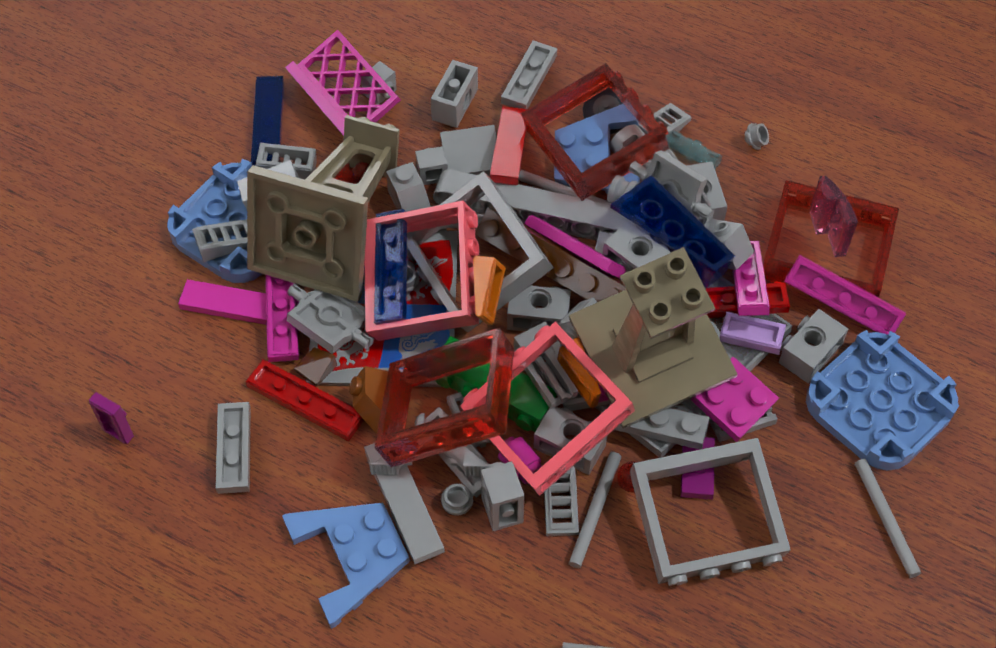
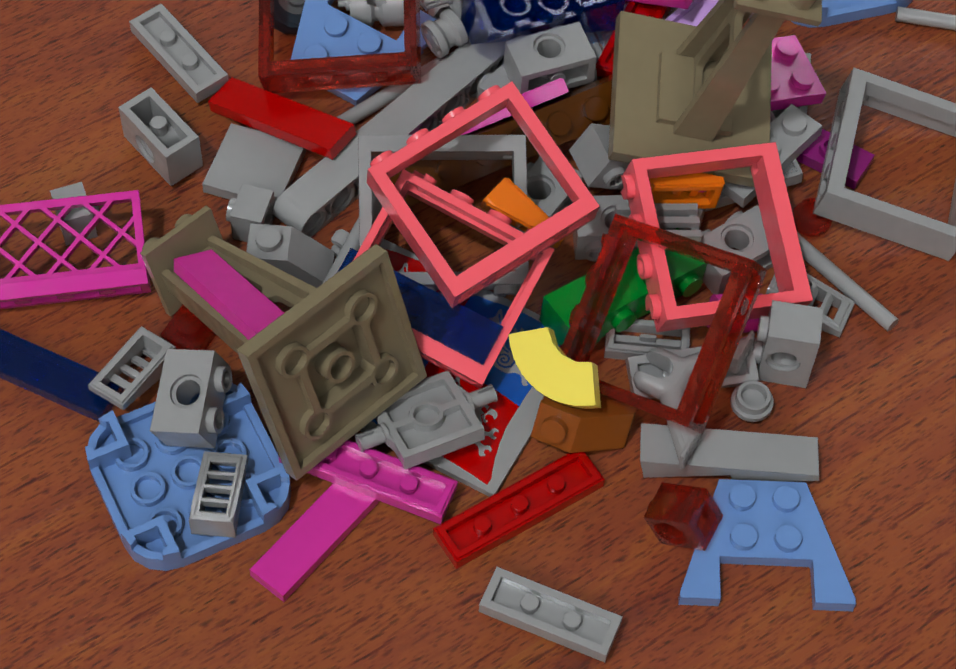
camera: 65 degrees left, 0 degrees up
(316, 365) = (481, 469): reddish brown slope -> none
(336, 489) = (683, 516): none -> clear red brick
(342, 163) = (227, 292): none -> dark pink tile
(386, 361) = (552, 371): none -> light yellow tile
(507, 288) = (520, 250): none -> coral window

